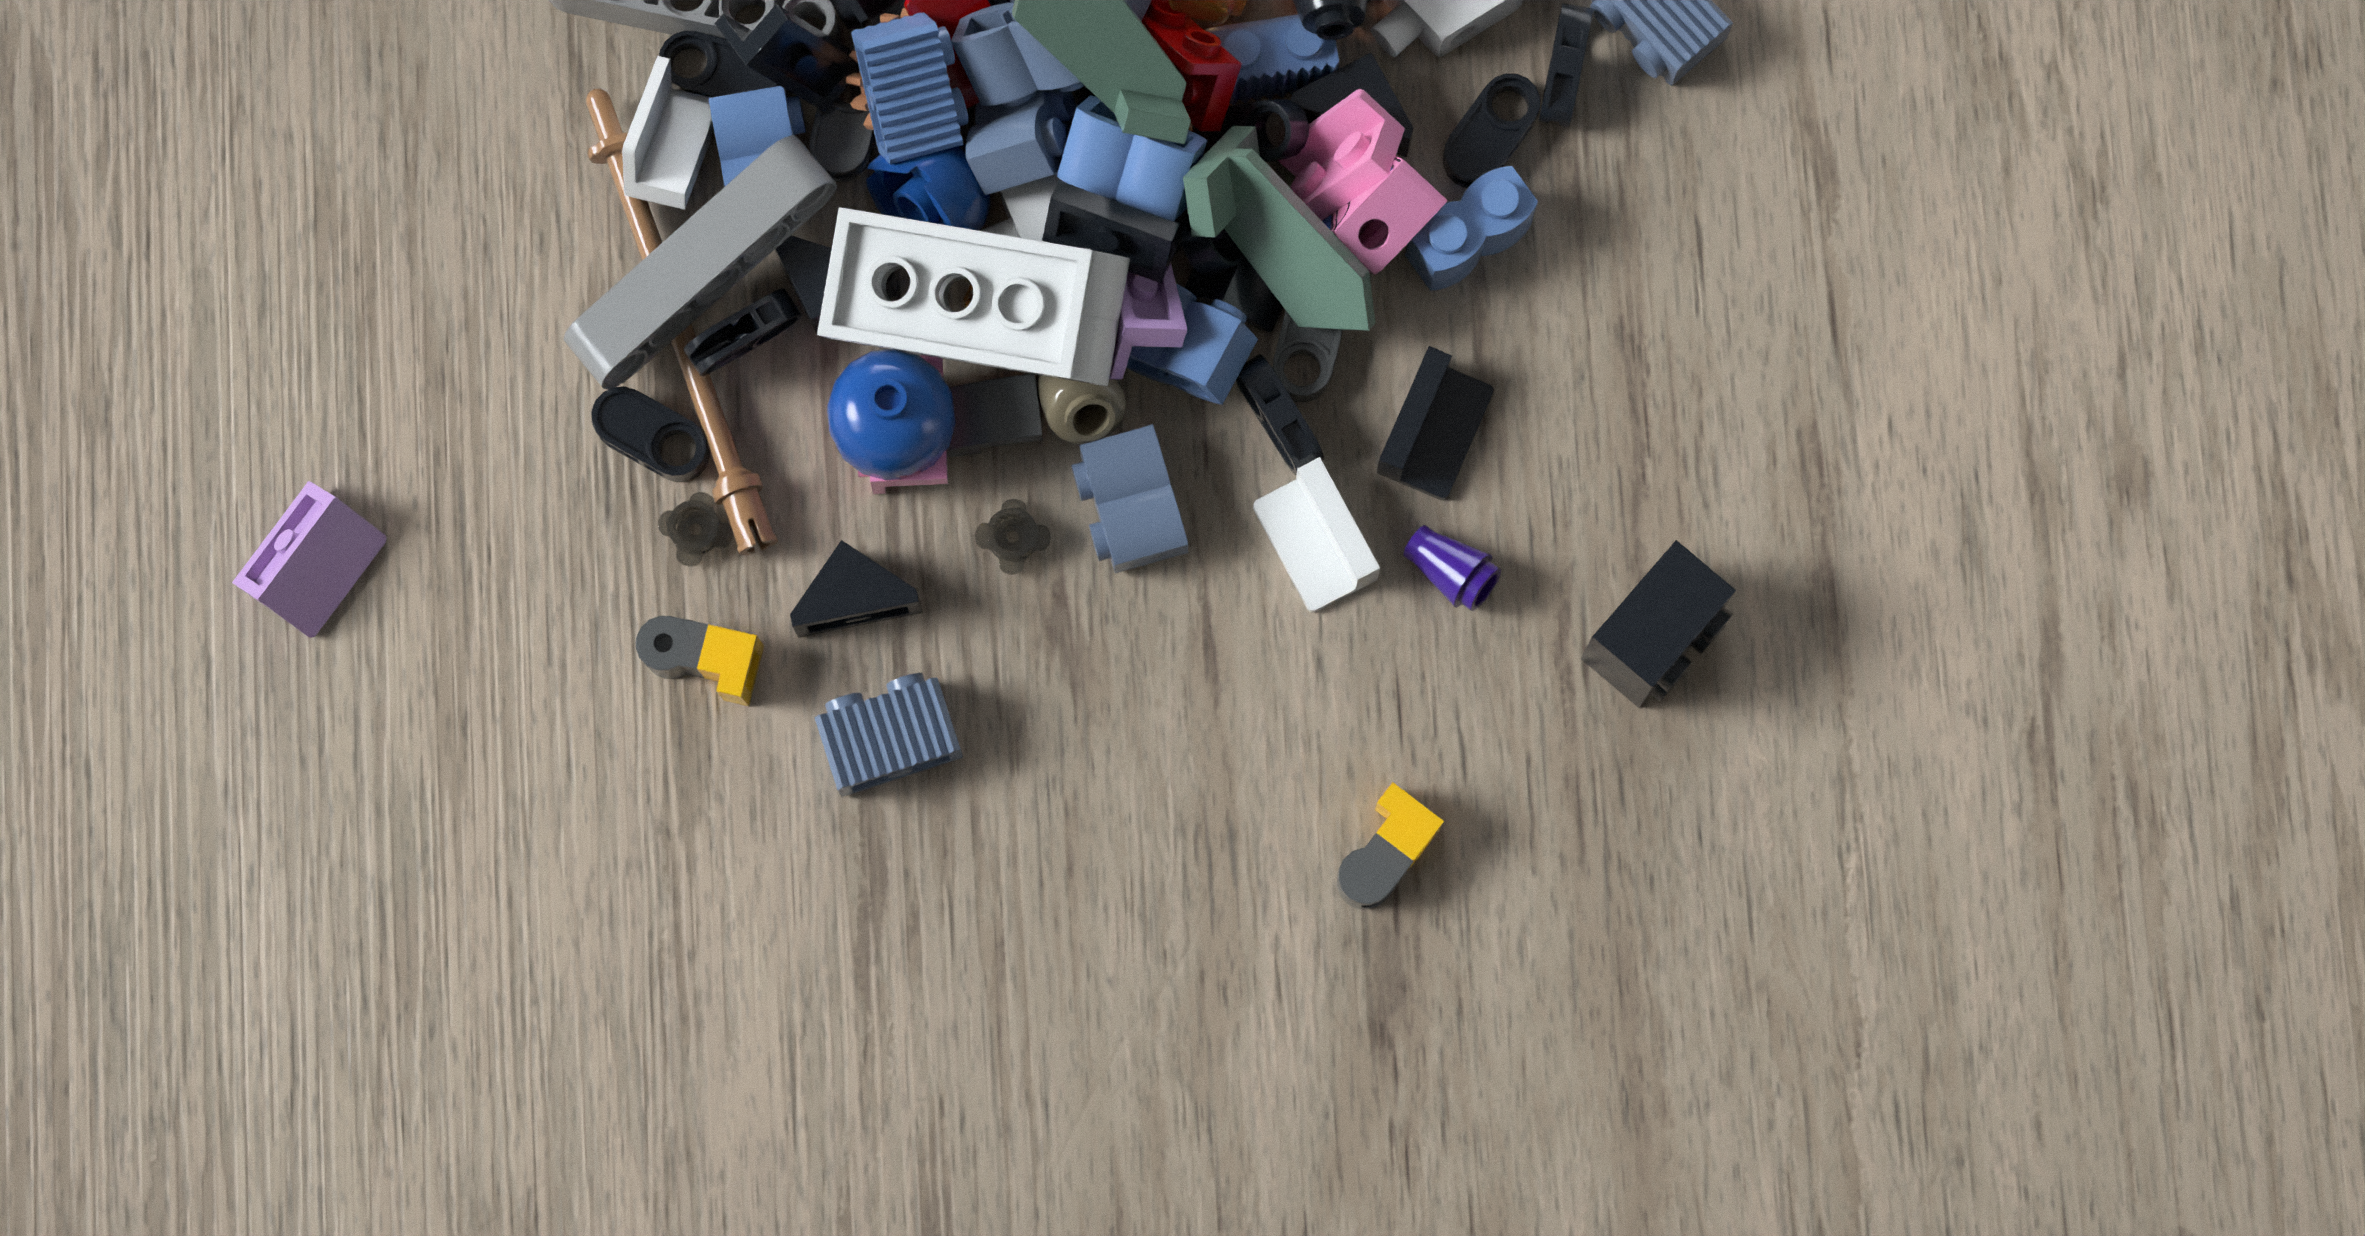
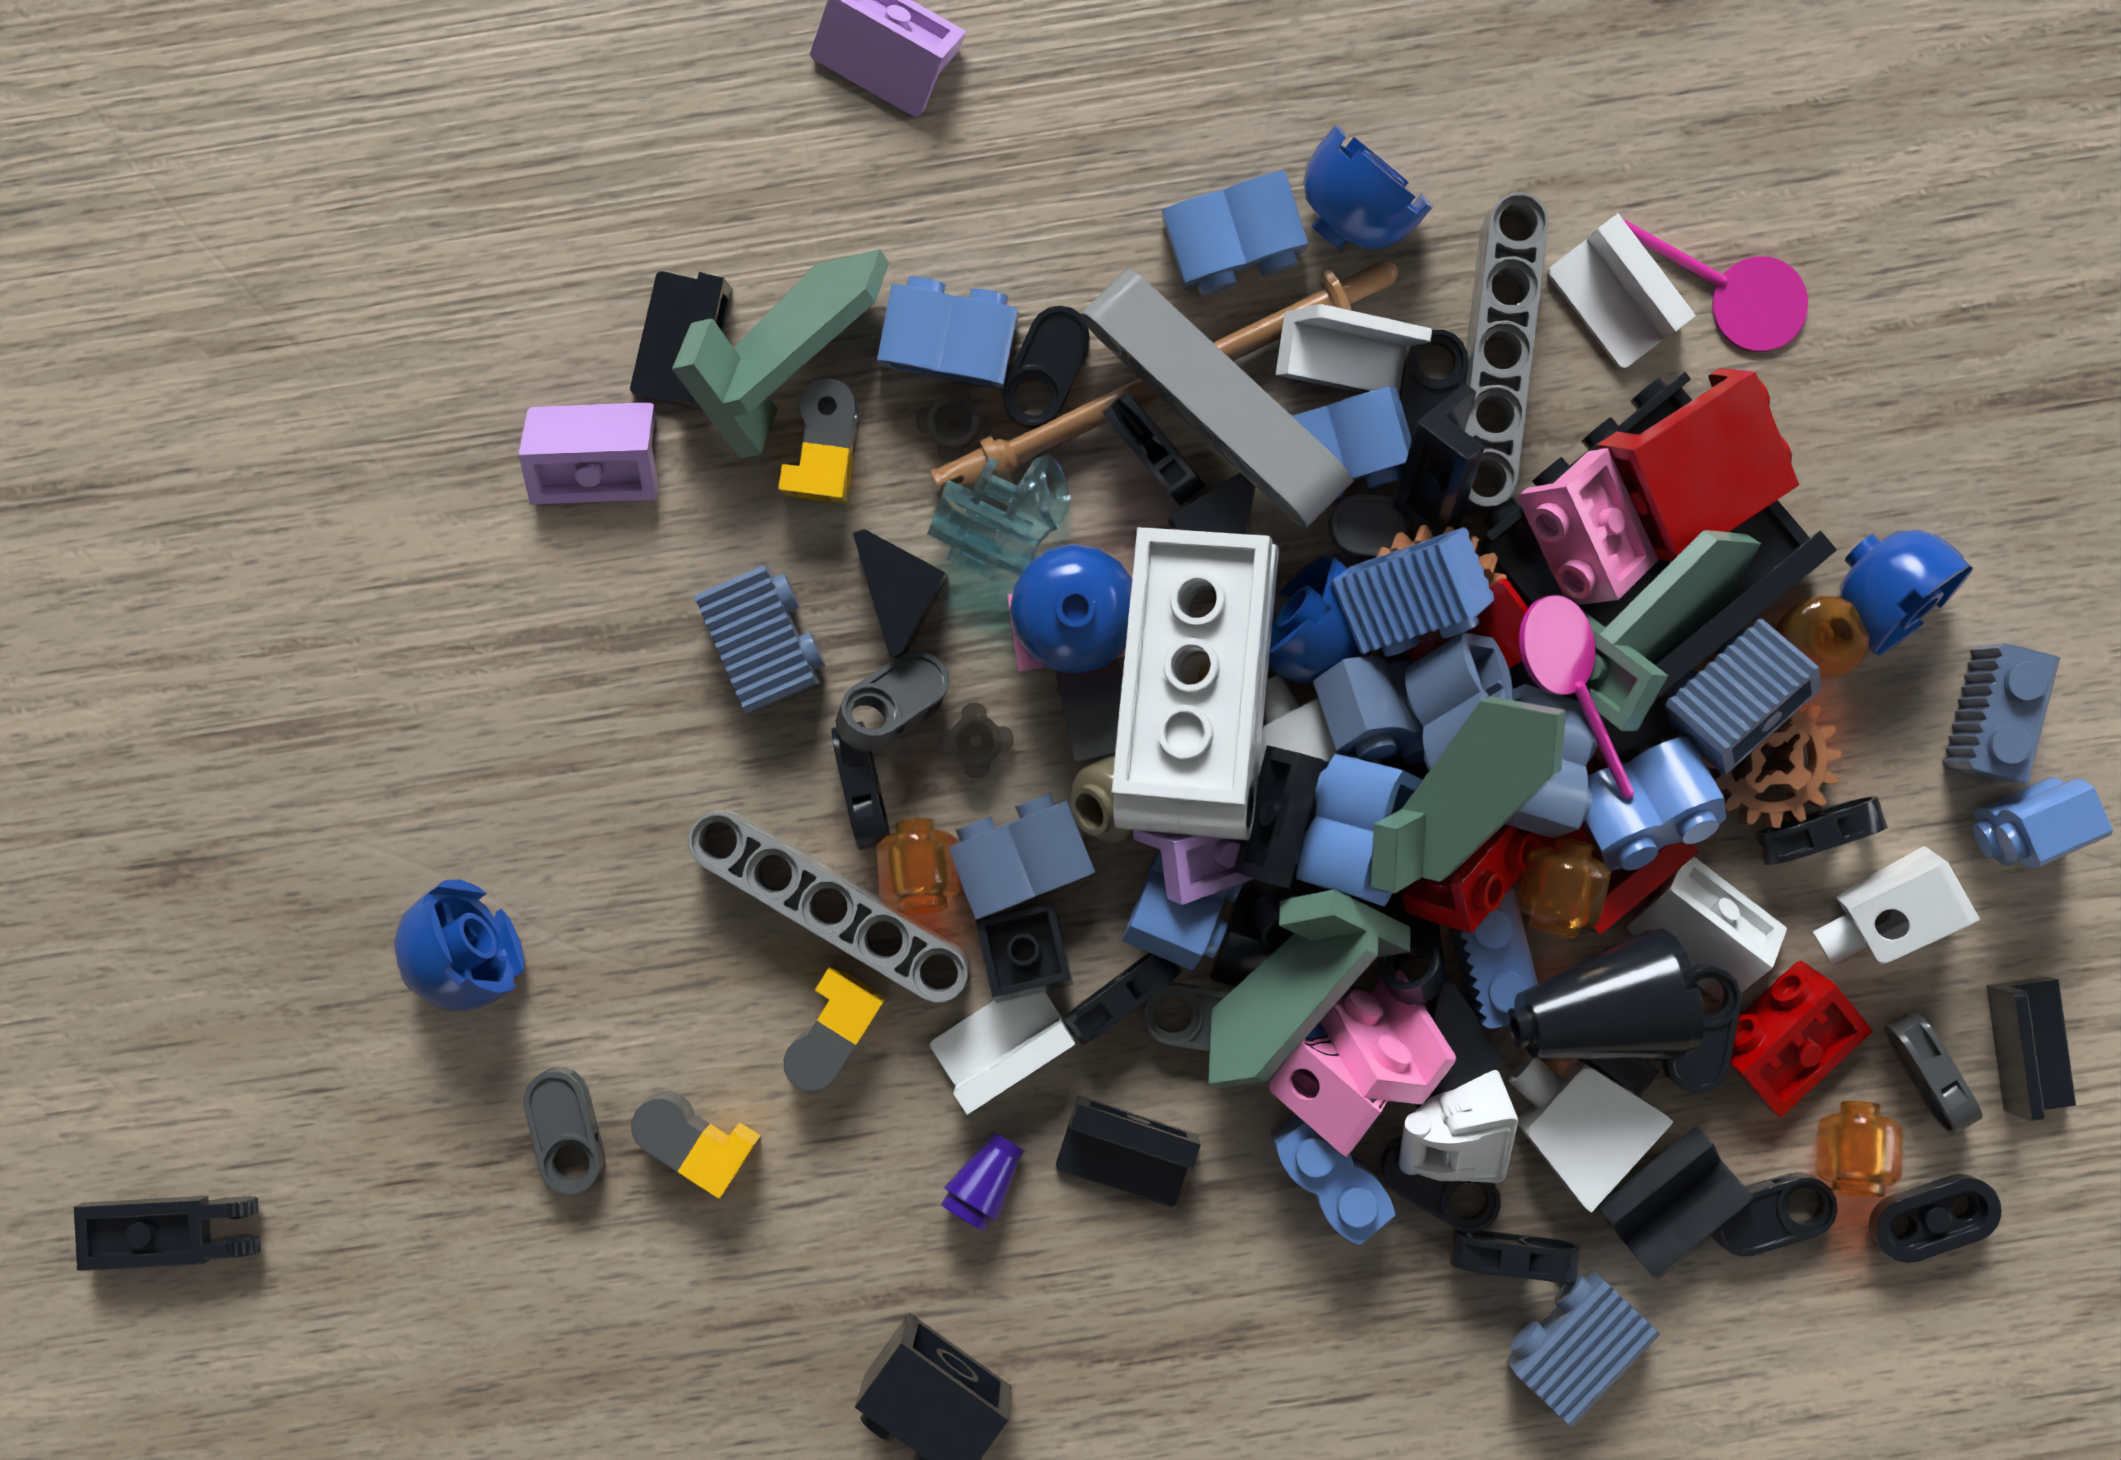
camera: 85 degrees right, 10 degrees up
(521, 115) = (1359, 195): none -> blue cylinder
(541, 238) = (1235, 232): none -> medium blue brick
(579, 790) = (672, 308): none -> black panel
(596, 681) = (737, 381): none -> sand green piece
(607, 521) = (948, 334): none -> medium blue brick
(683, 889) = (589, 453): none -> lavender panel
(808, 490) = (1025, 524): none -> clear light blue piece
(955, 598) = (903, 692): none -> dark grey piece
(1045, 649) = (861, 793): none -> black piece
(1132, 600) = (917, 867): none -> clear orange head
(1168, 659) = (798, 904): none -> light grey beam
(1172, 1069) = (456, 949): none -> blue cylinder
(1226, 503) = (1024, 952): none -> black piece
(1290, 697) = (822, 1051): none -> leg
(1351, 983) = (562, 1115): none -> dark grey piece
(1438, 95) = (1462, 1133): none -> white piece

